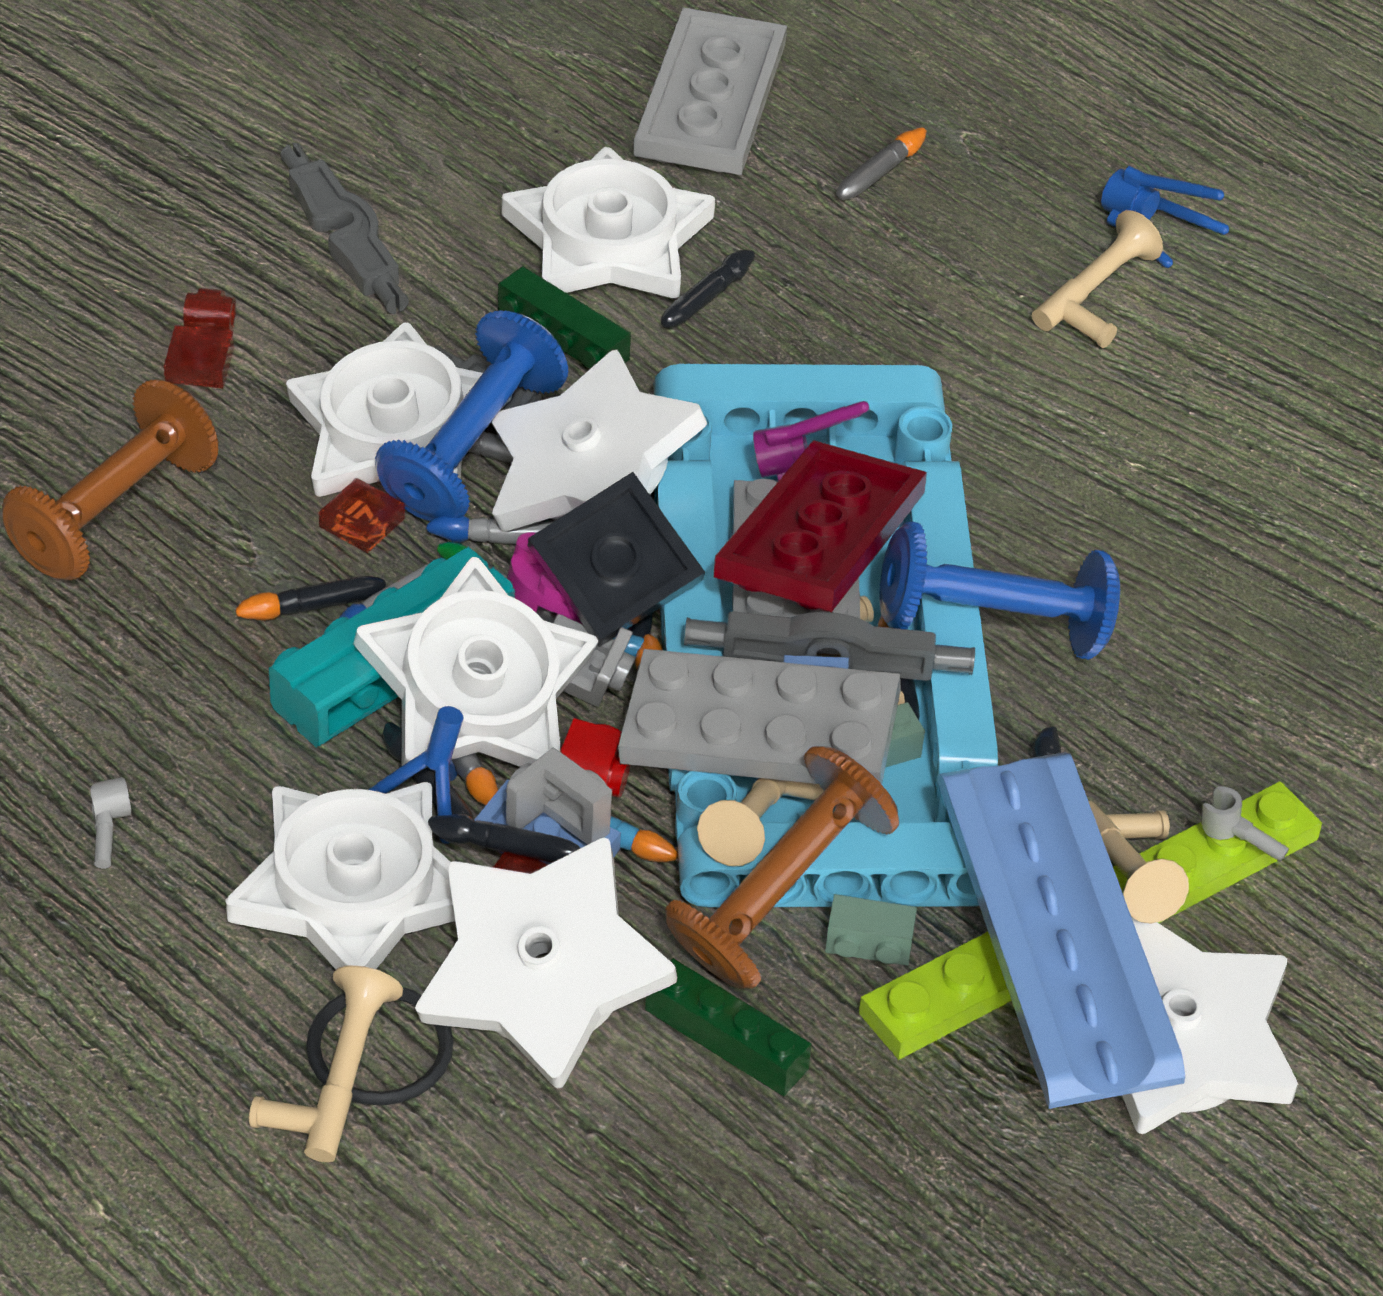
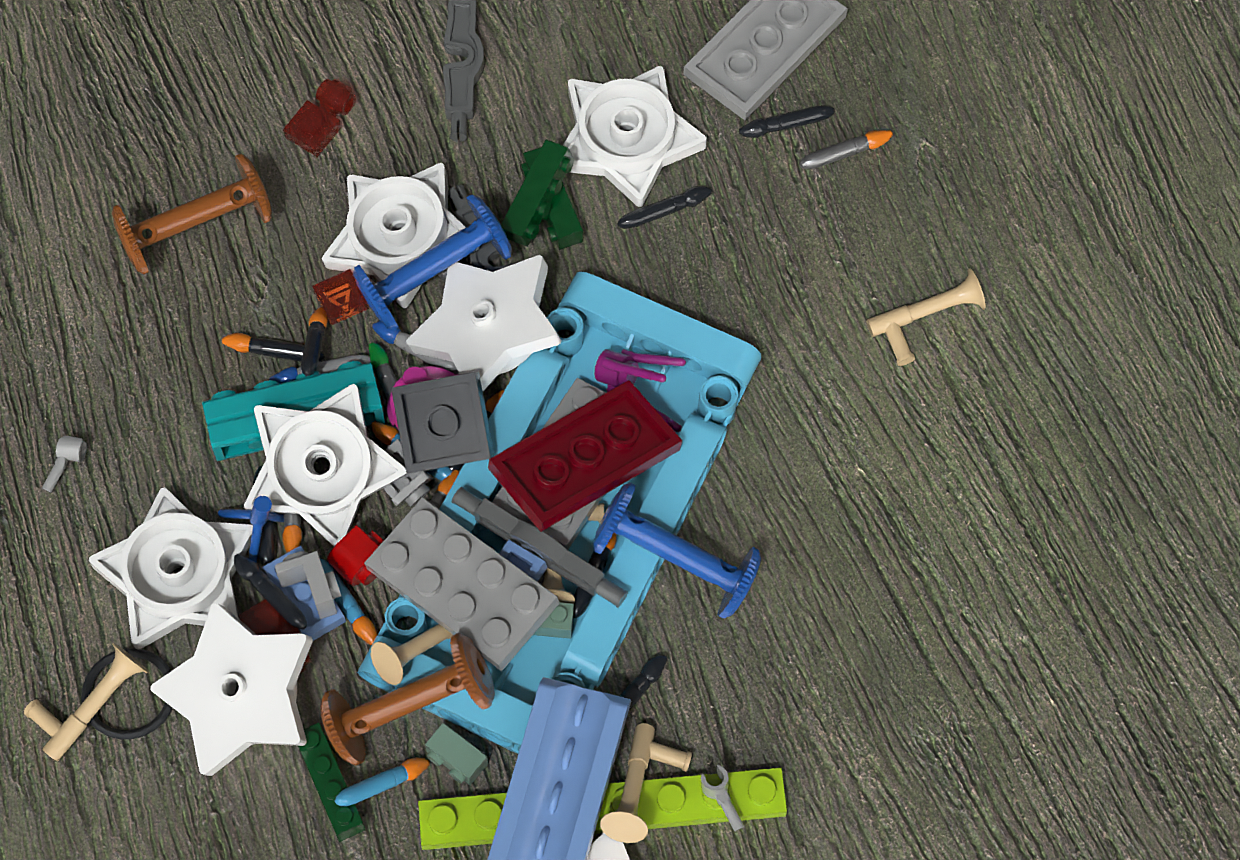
camera: 30 degrees right, 20 degrees up
(366, 559) = (314, 341): none -> black piece
(554, 293) = (537, 192): none -> dark green piece
(765, 174) = (784, 121): none -> black piece
(789, 1001) = (383, 781): none -> dark azure piece
(1135, 192) = (999, 255): blue plant -> none

